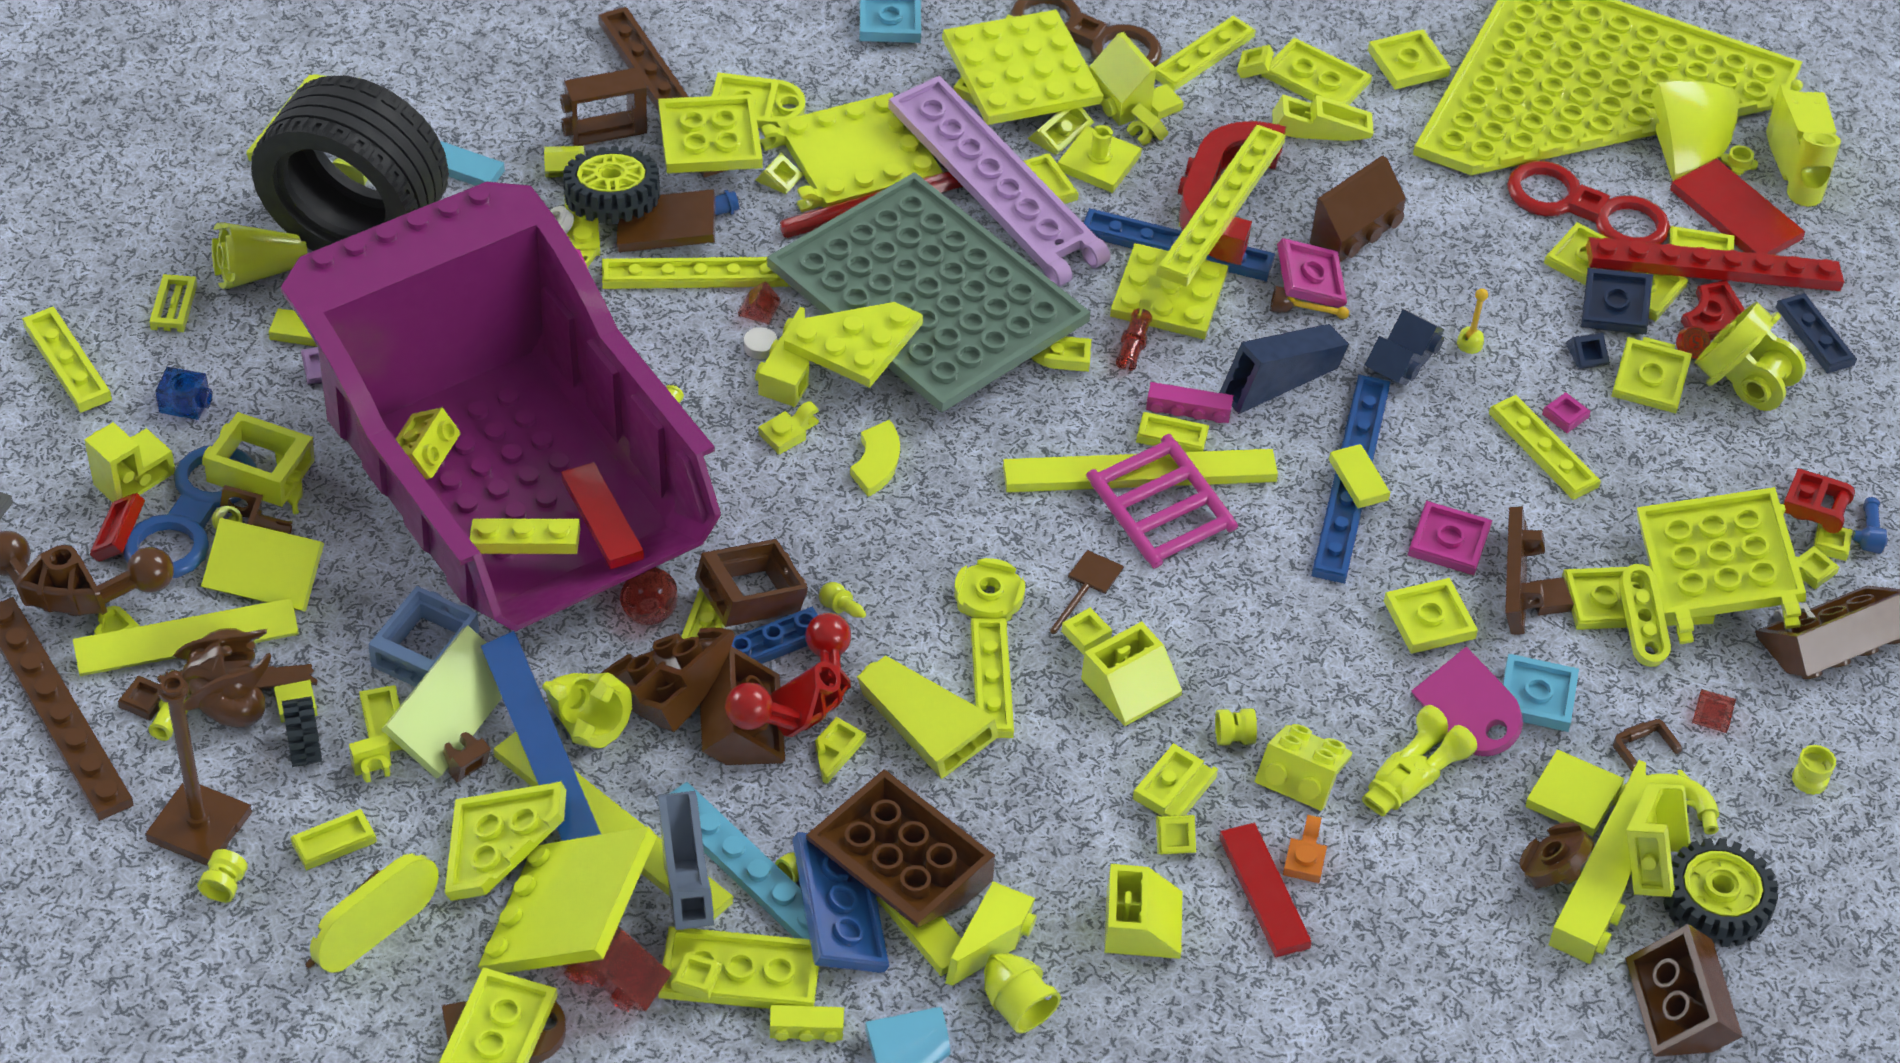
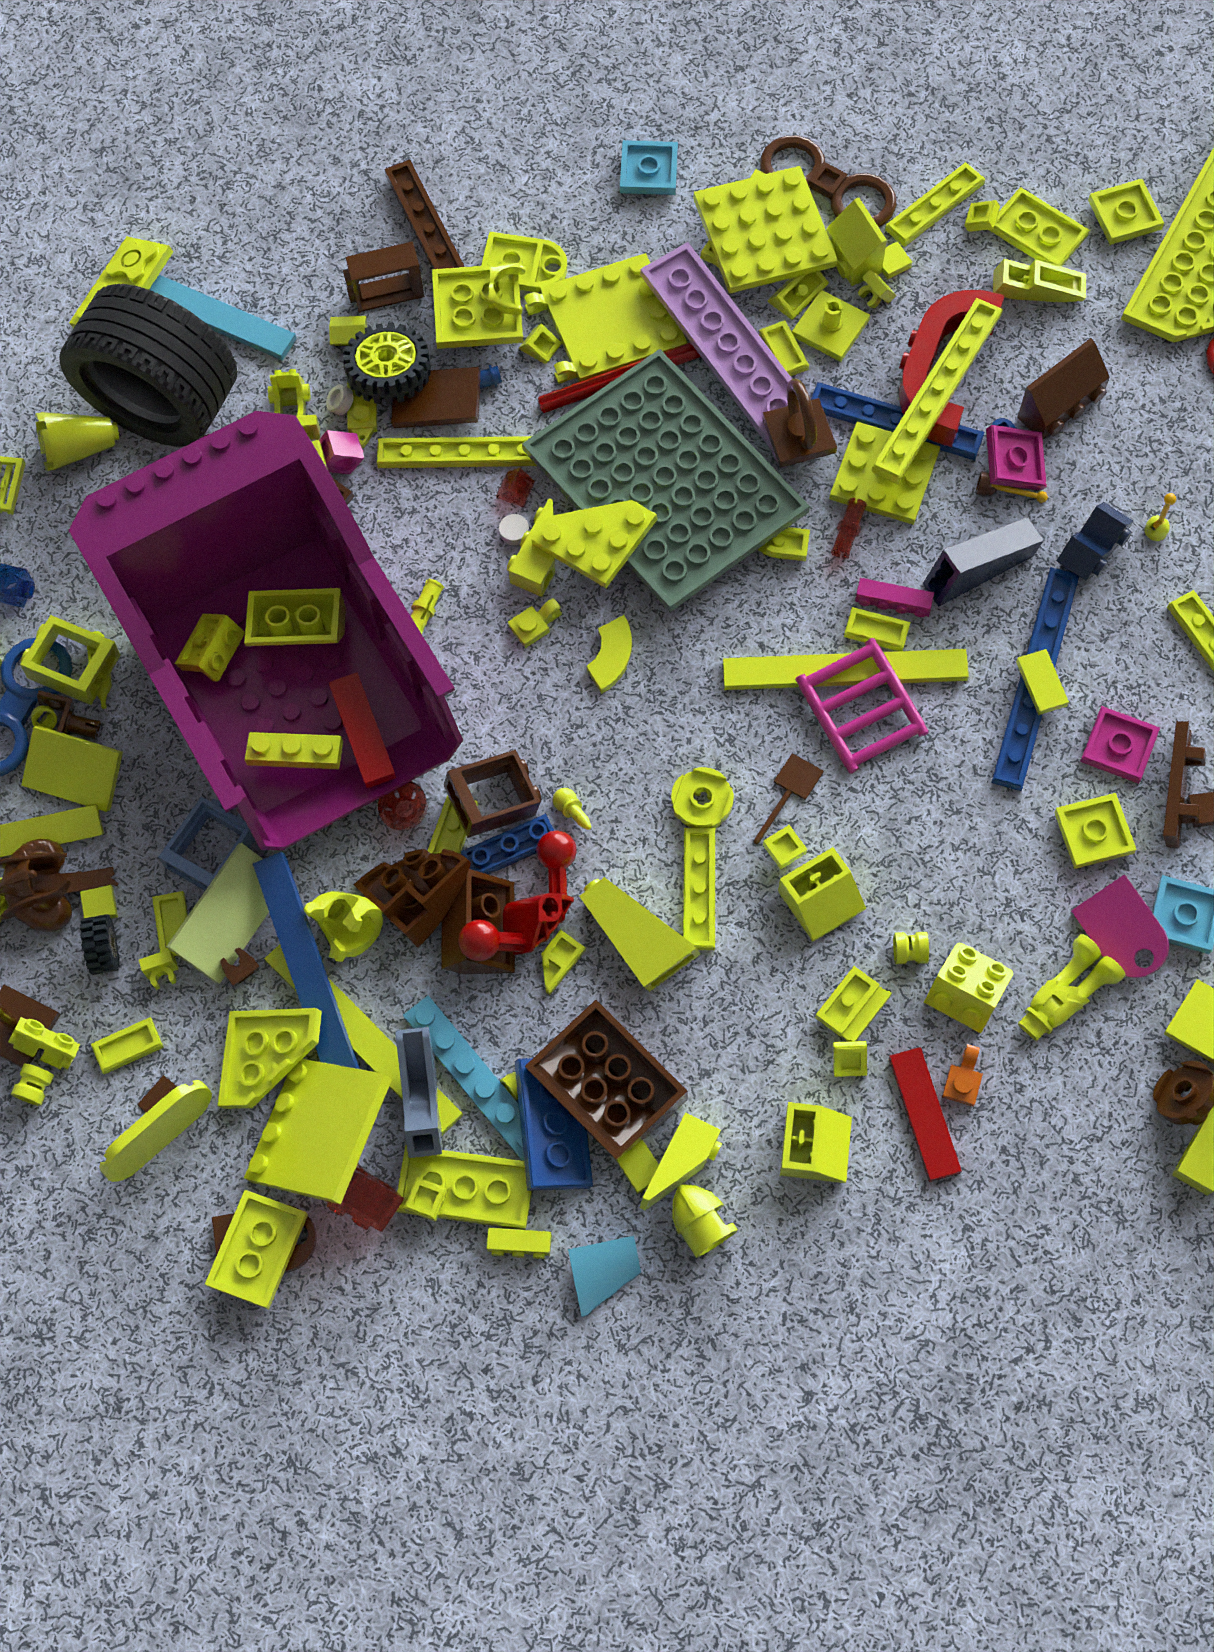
camera: 10 degrees right, 20 degrees up
(223, 825) = (58, 1047): none -> neon yellow hinge
(521, 407) = (295, 617): none -> neon yellow slope
(730, 124) = (496, 274): none -> neon yellow cap
(1072, 244) = (800, 429): none -> reddish brown tile

